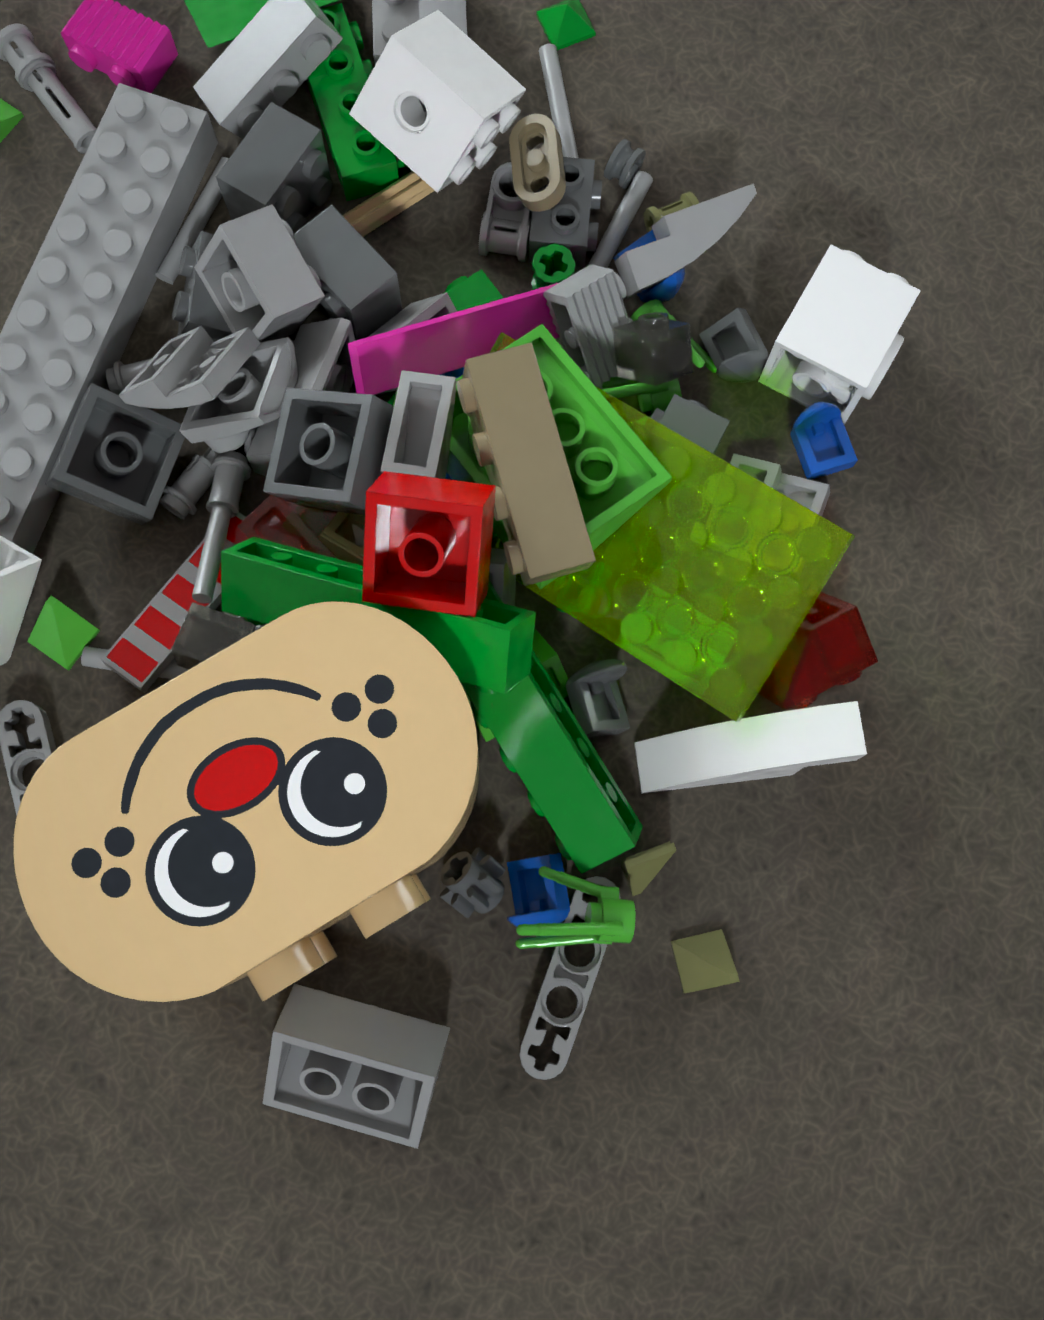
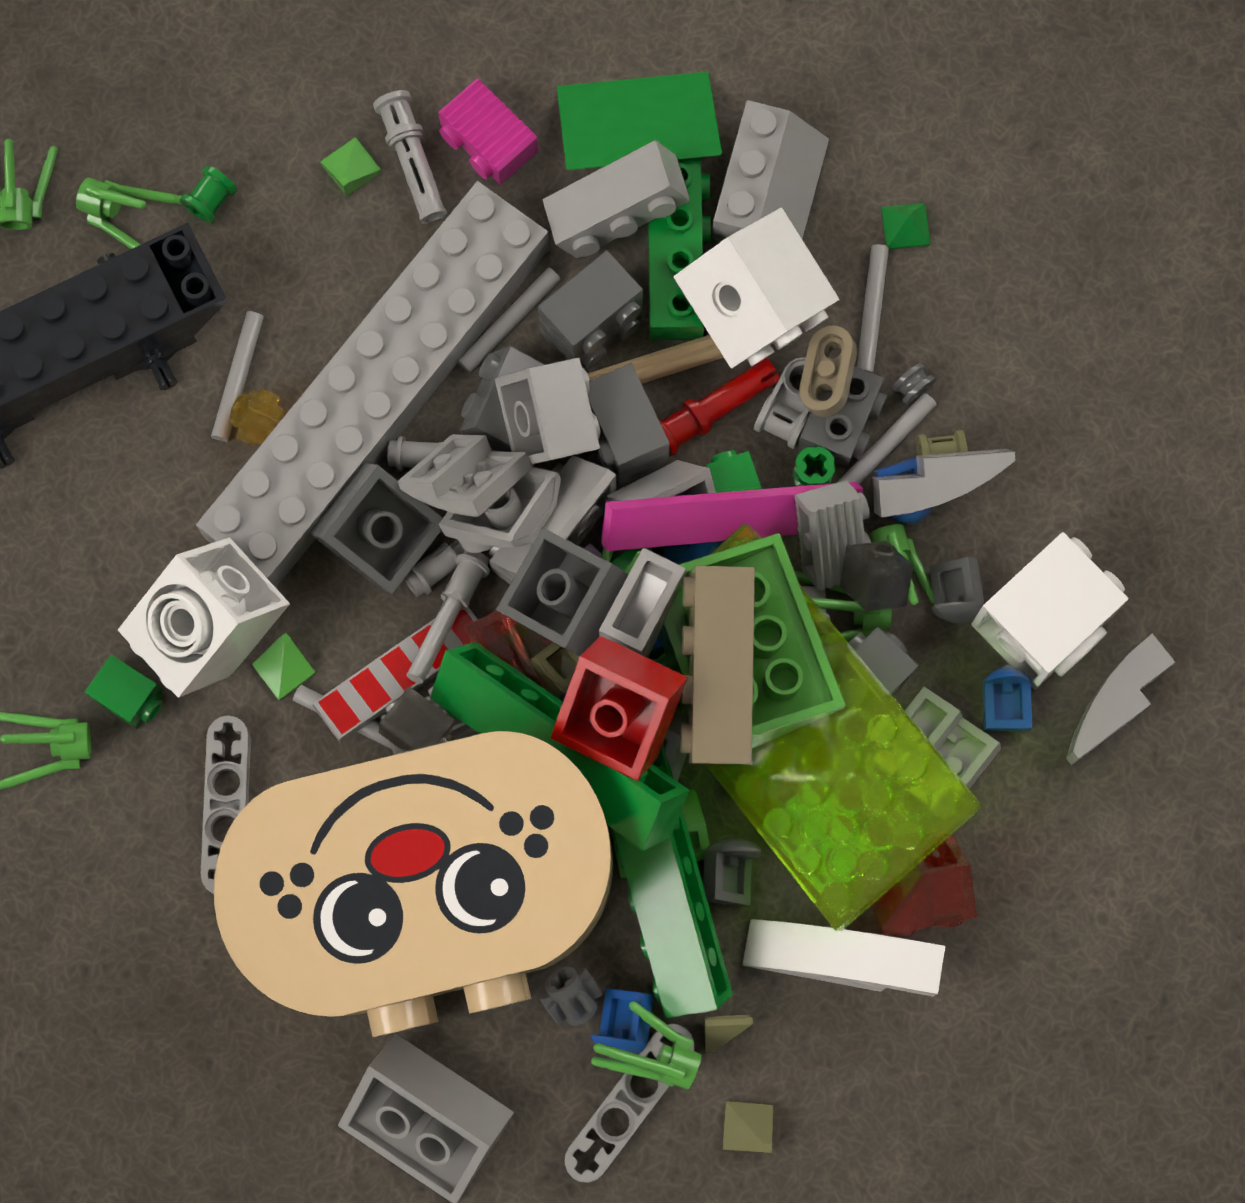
camera: 20 degrees right, 0 degrees up
(418, 255) = (697, 416): none -> red pin
(932, 404) = (1119, 697): none -> light grey slope

